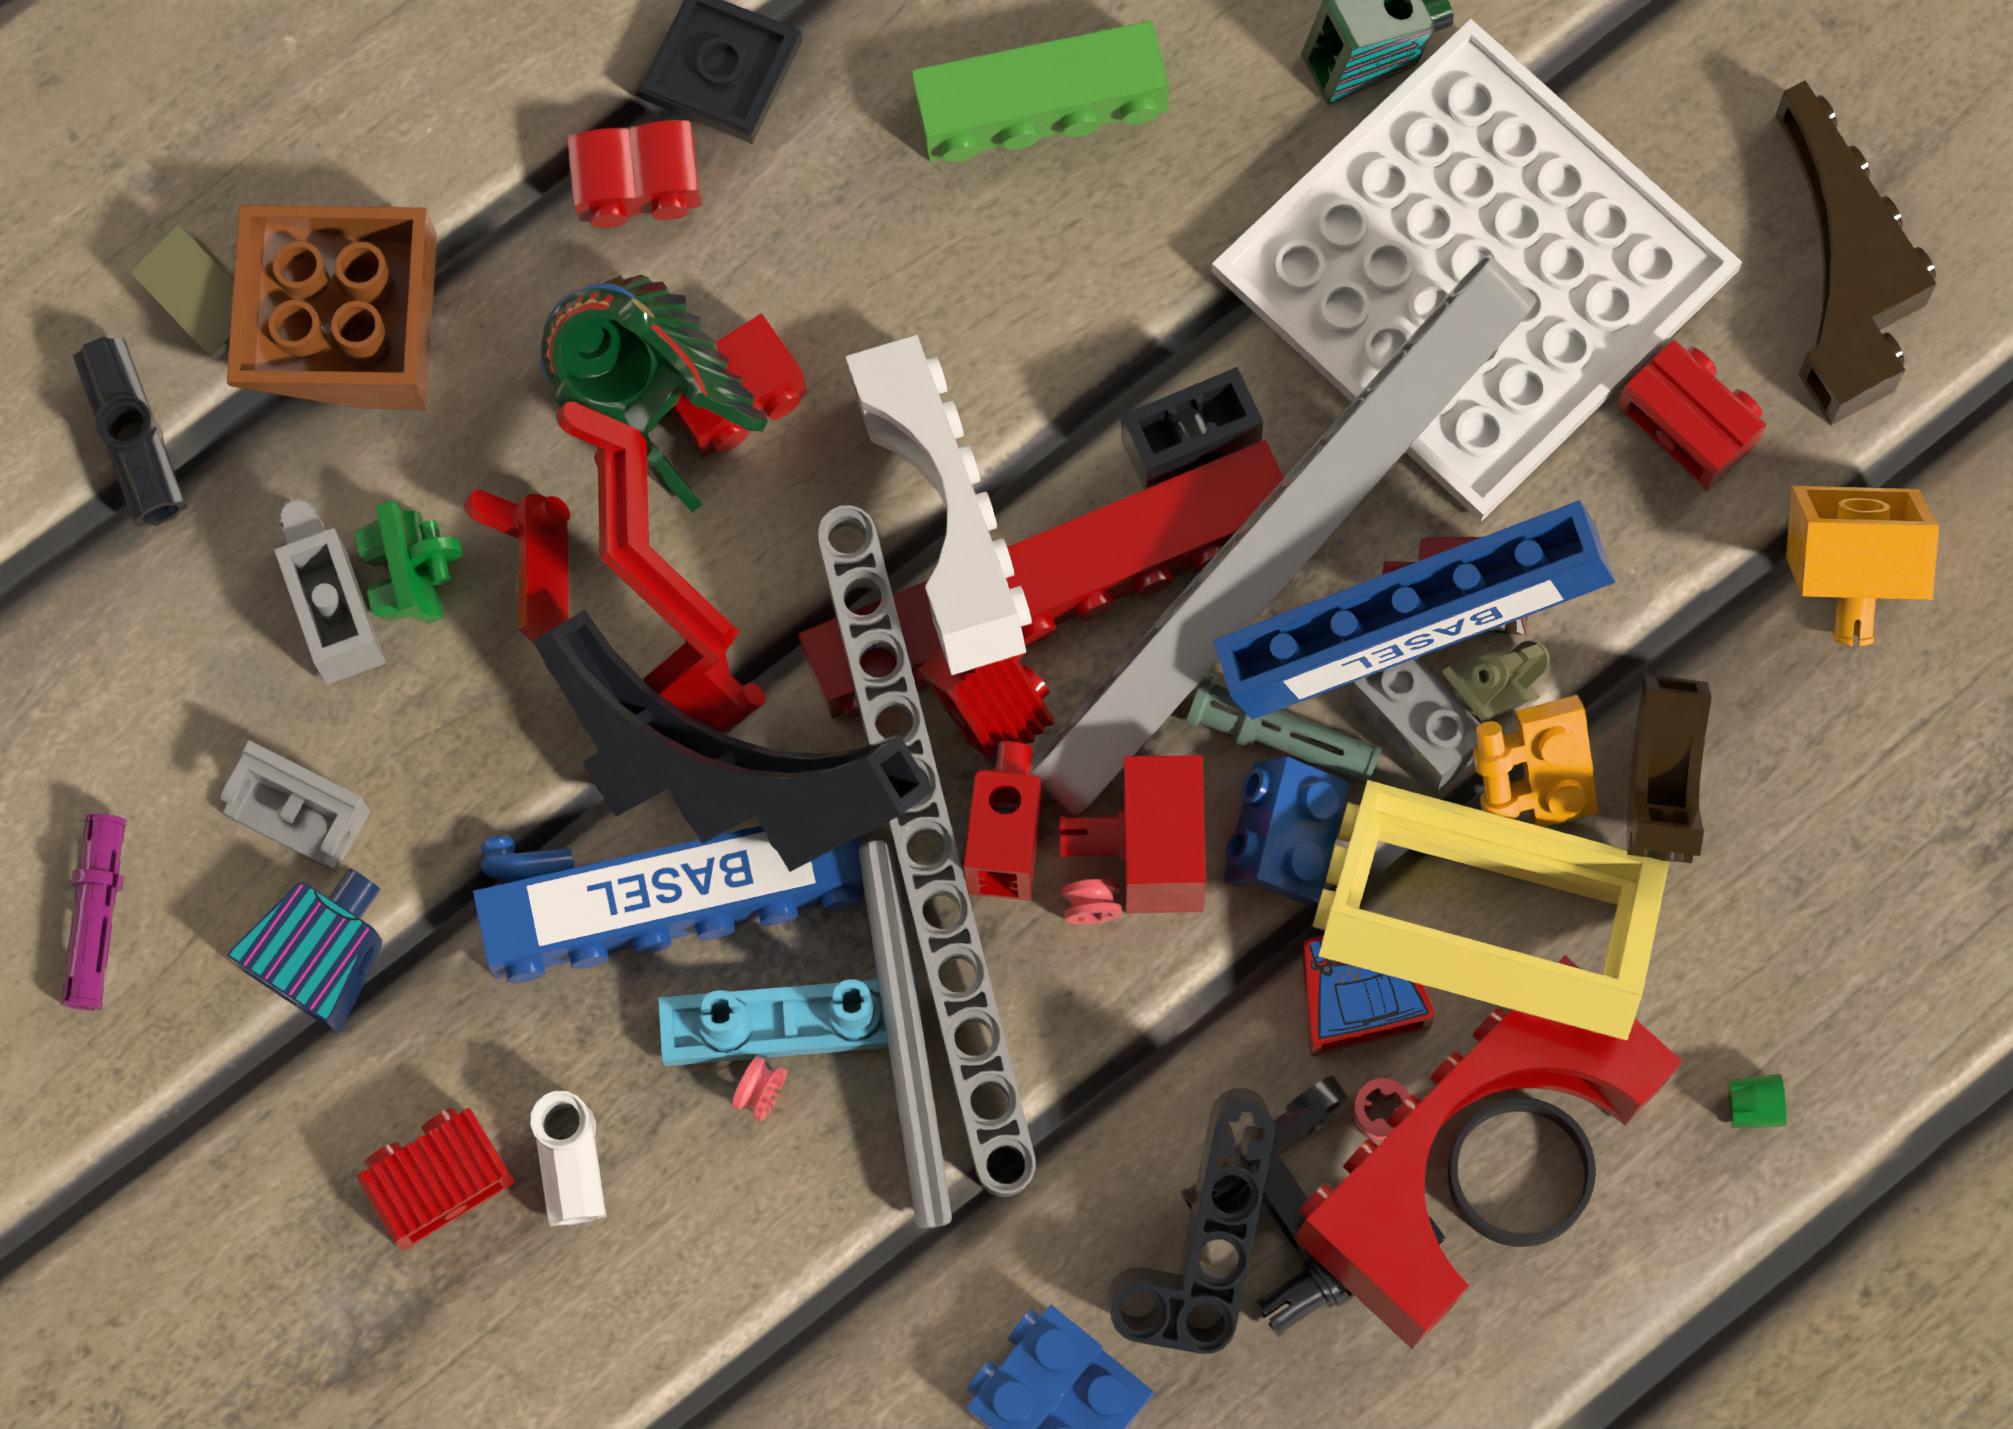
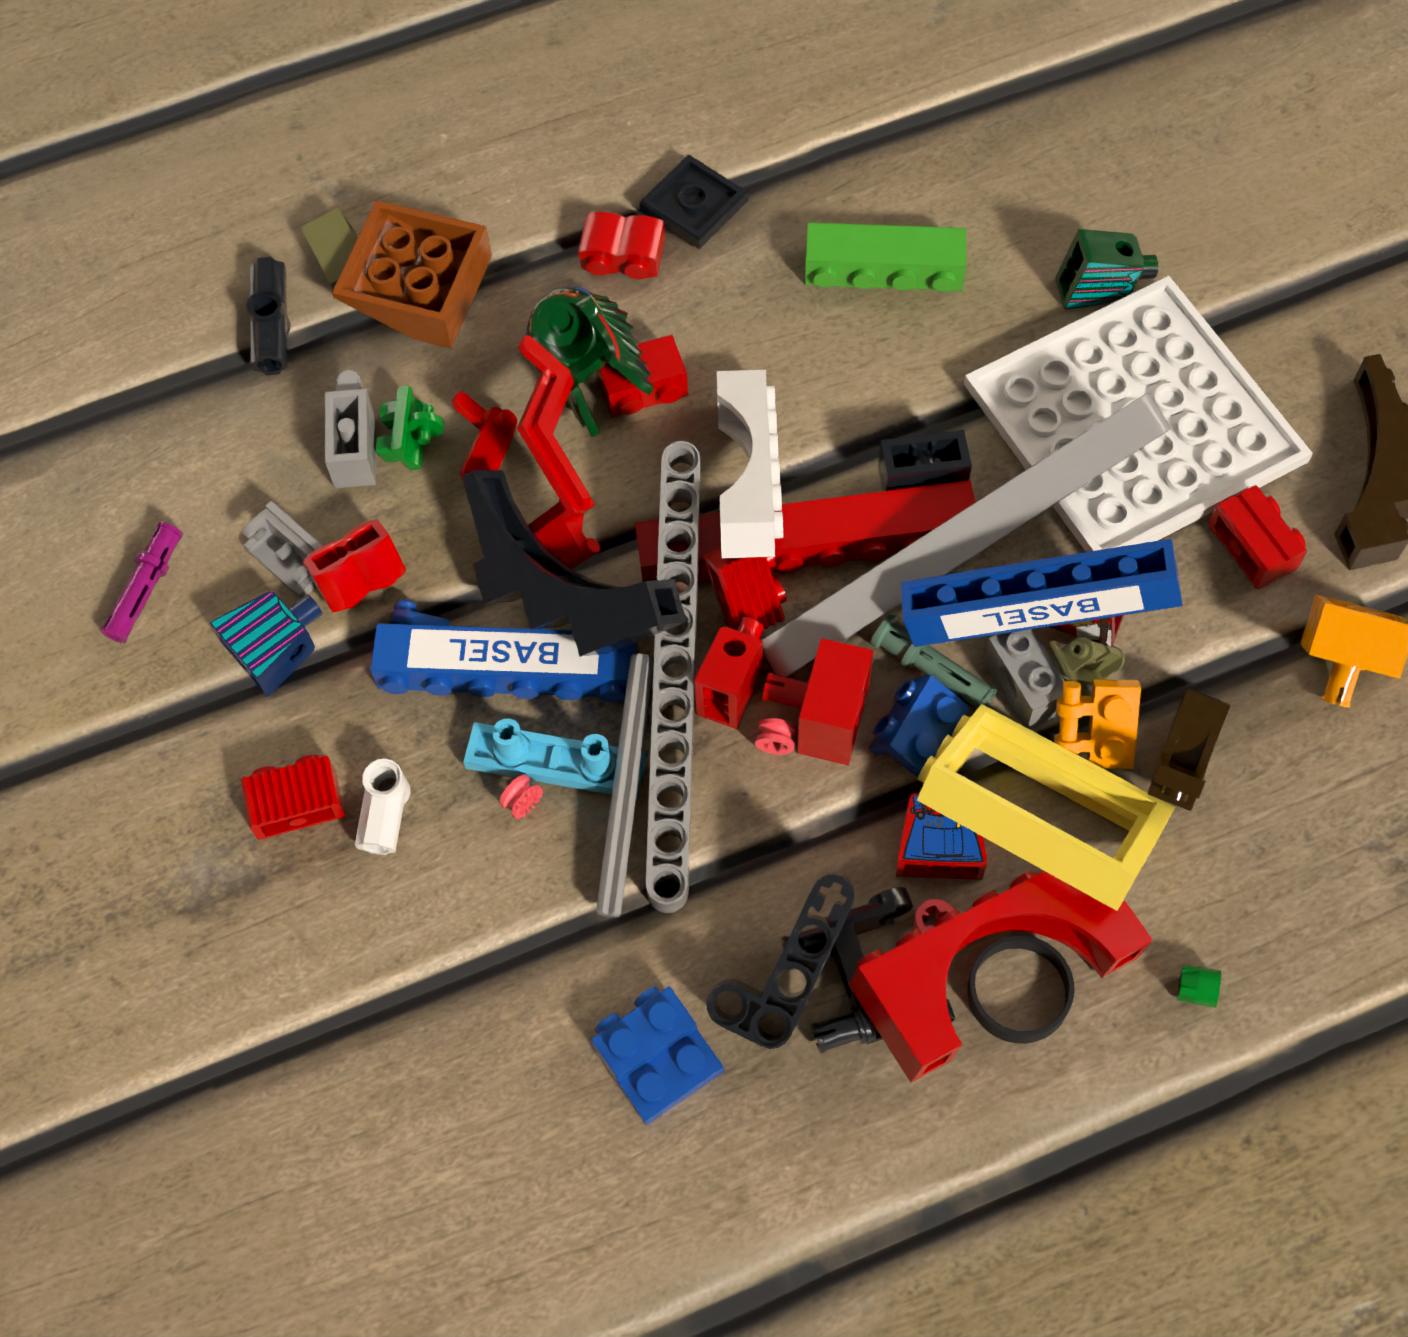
camera: 15 degrees right, 10 degrees down
(407, 808) = (355, 565): none -> red brick

